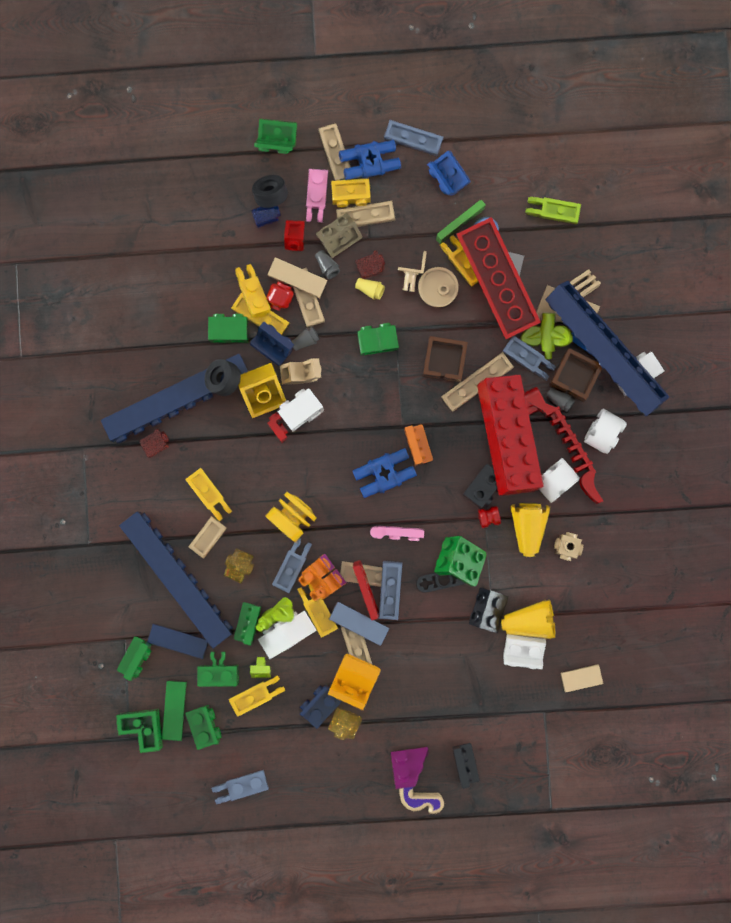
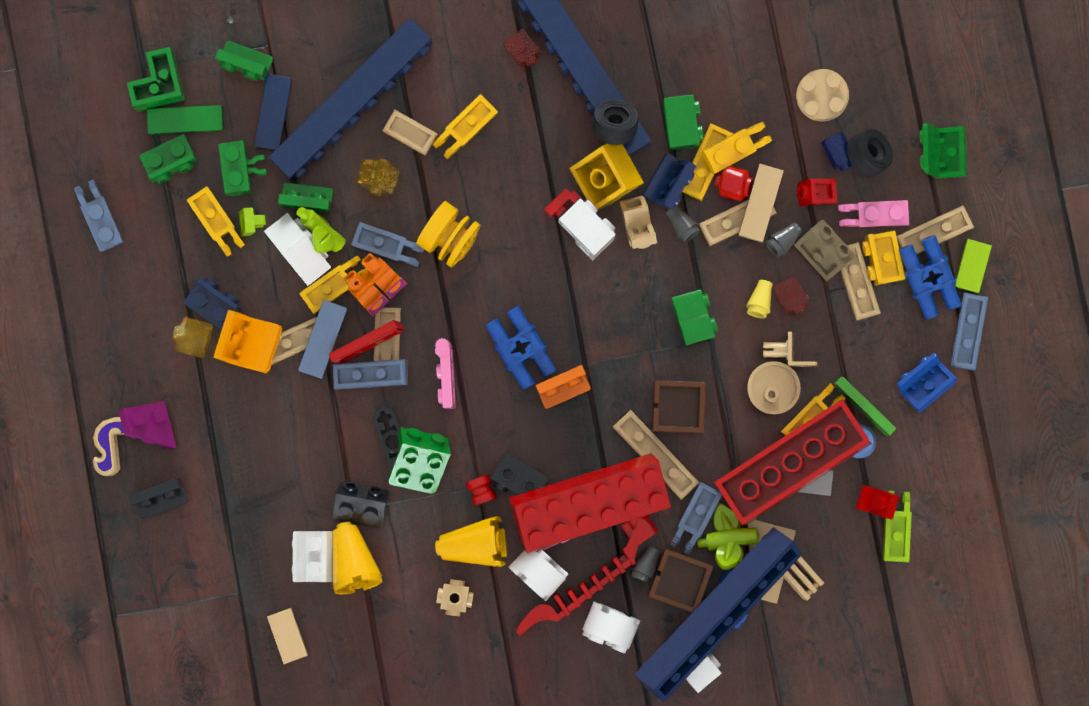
camera: 75 degrees right, 0 degrees up
(221, 221) = (822, 95): none -> tan piece
(364, 128) = (972, 266): none -> lime tile
(533, 221) = (877, 501): none -> red bracket

